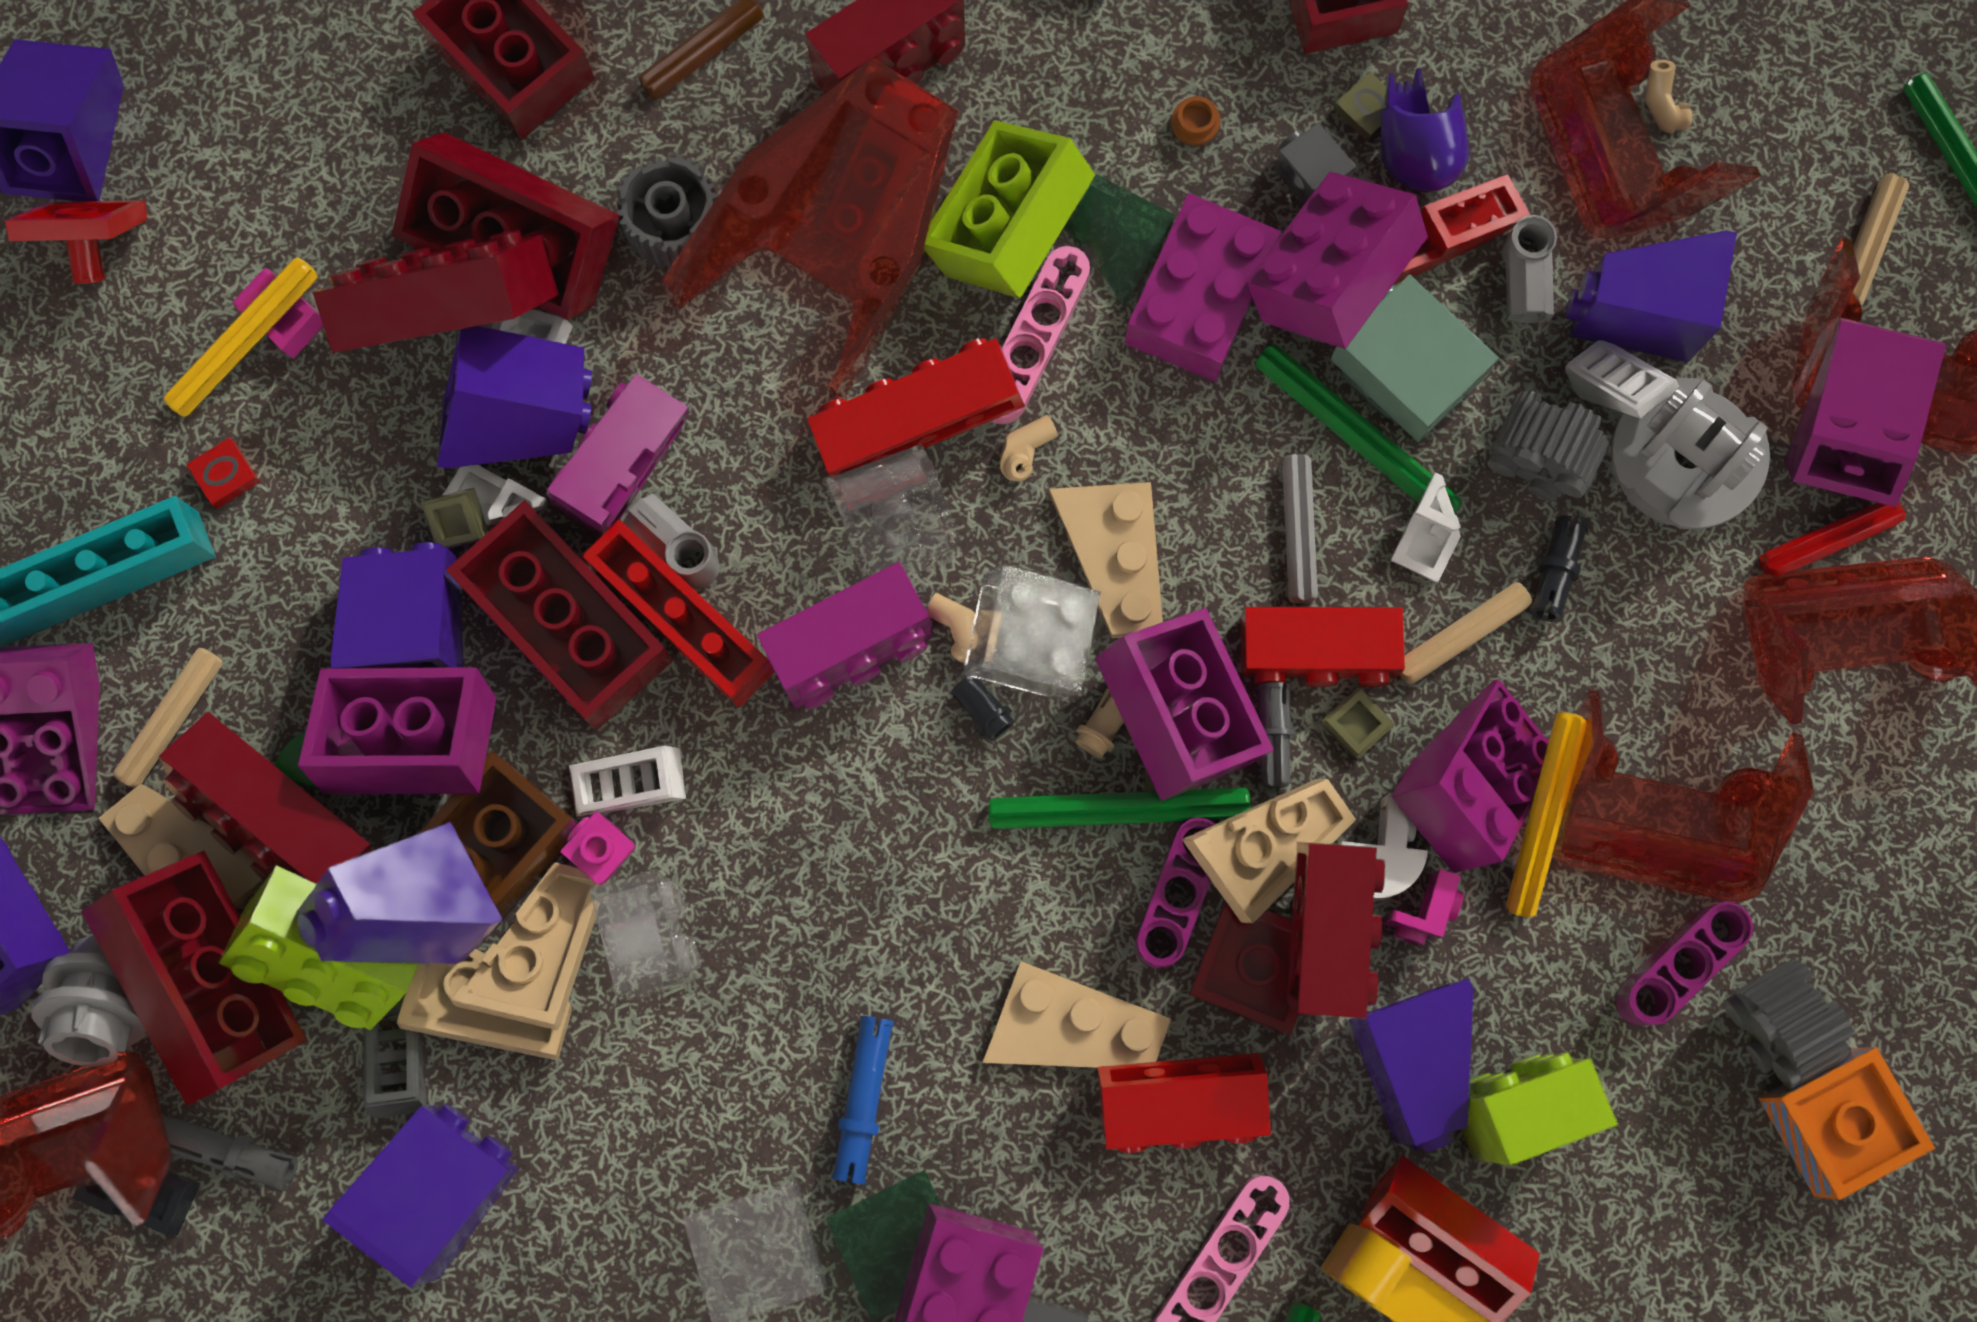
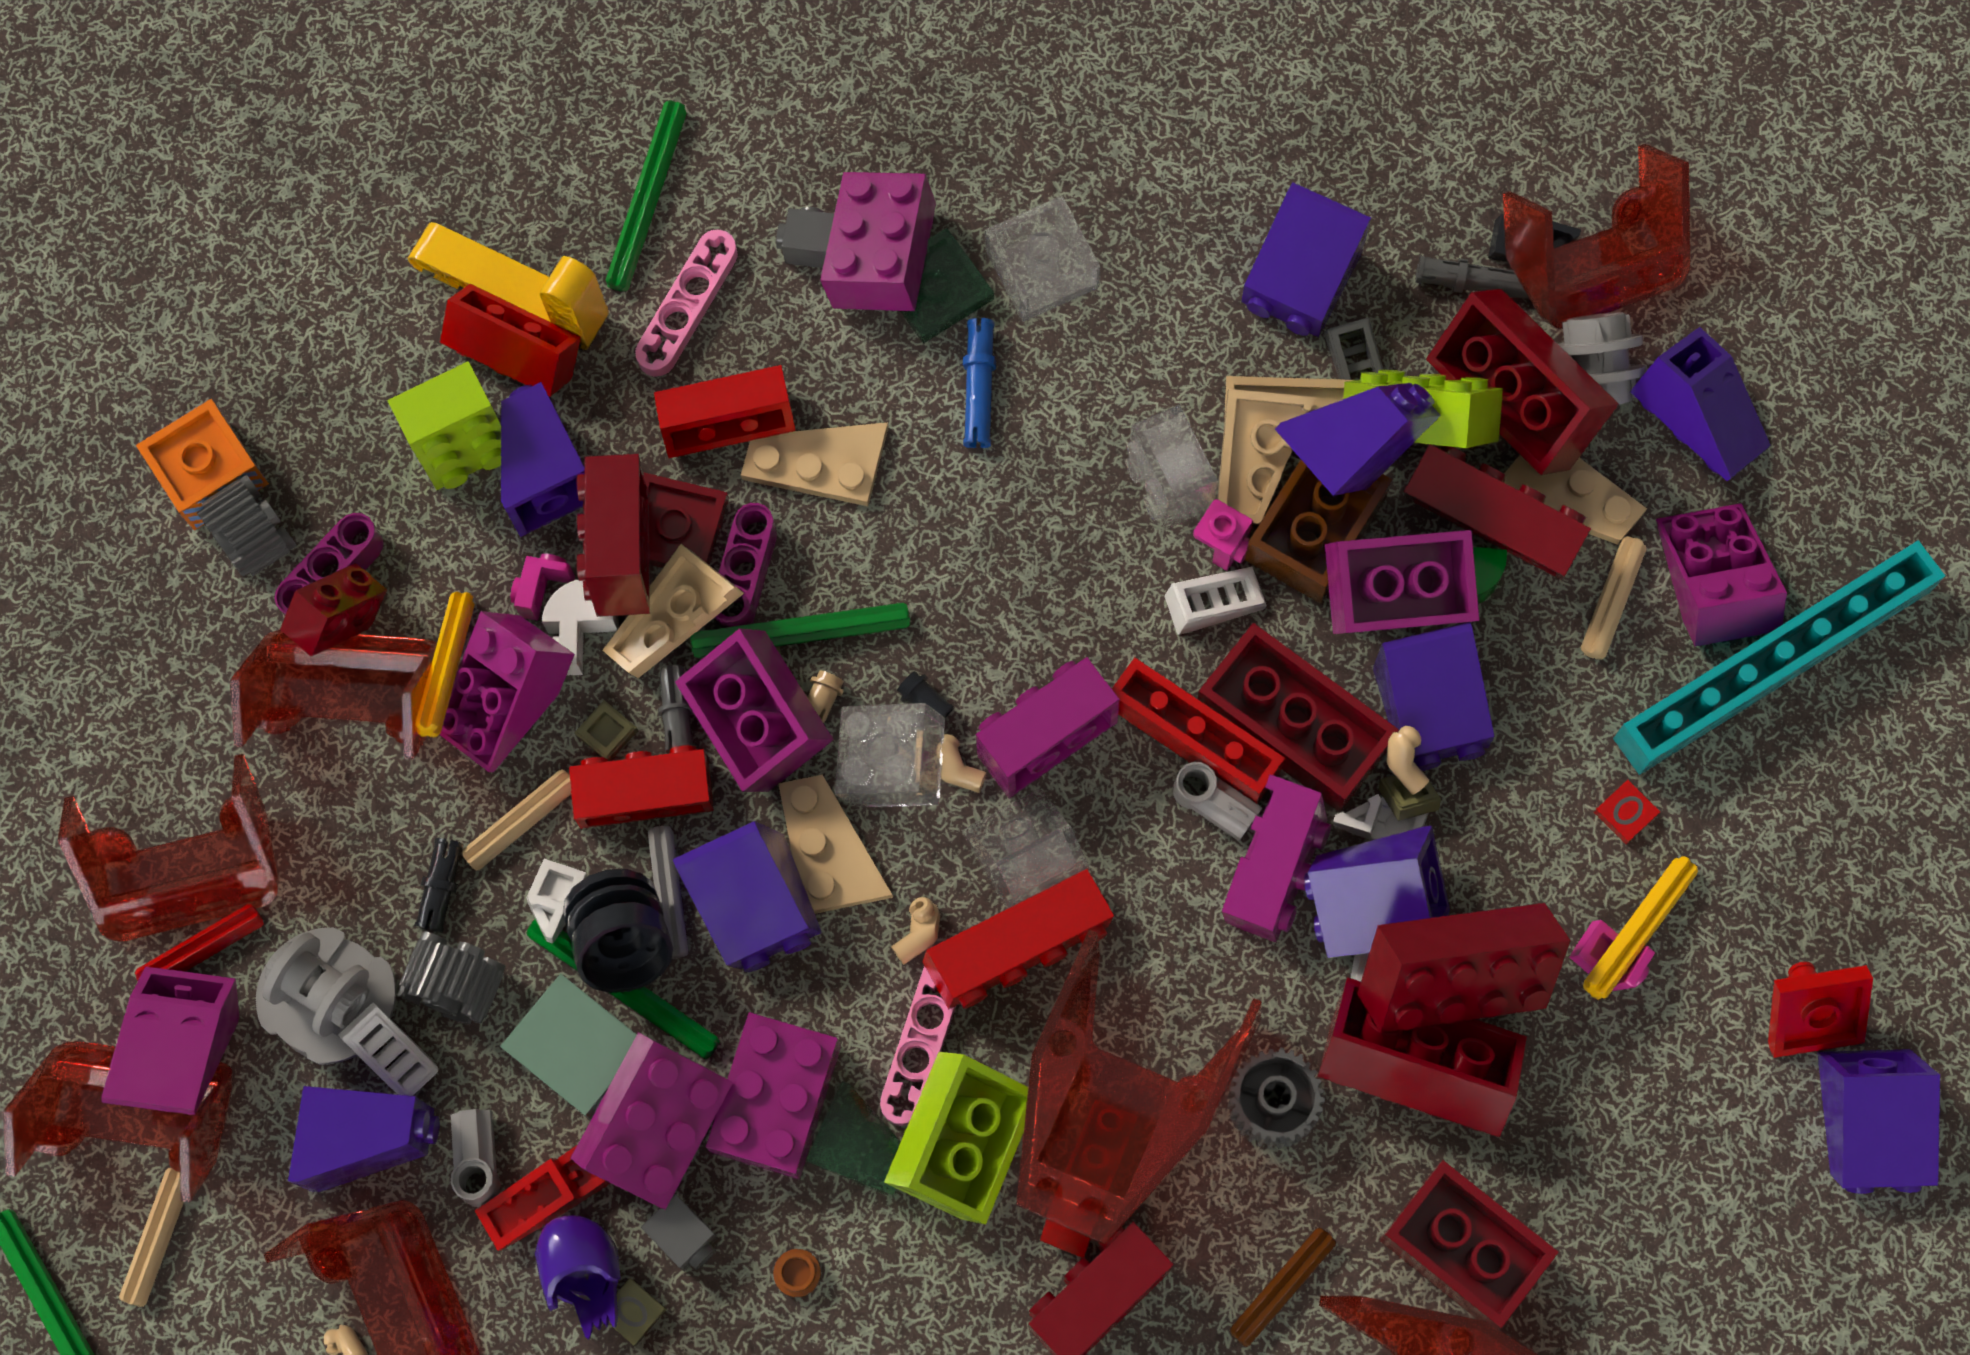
camera: 175 degrees right, 5 degrees down
(449, 541) = (1401, 757): none -> tan arm
(1208, 494) = (749, 895): none -> dark purple slope
(1361, 467) = (617, 930): none -> black wheel
(1681, 898) = (333, 609): none -> dark red brick

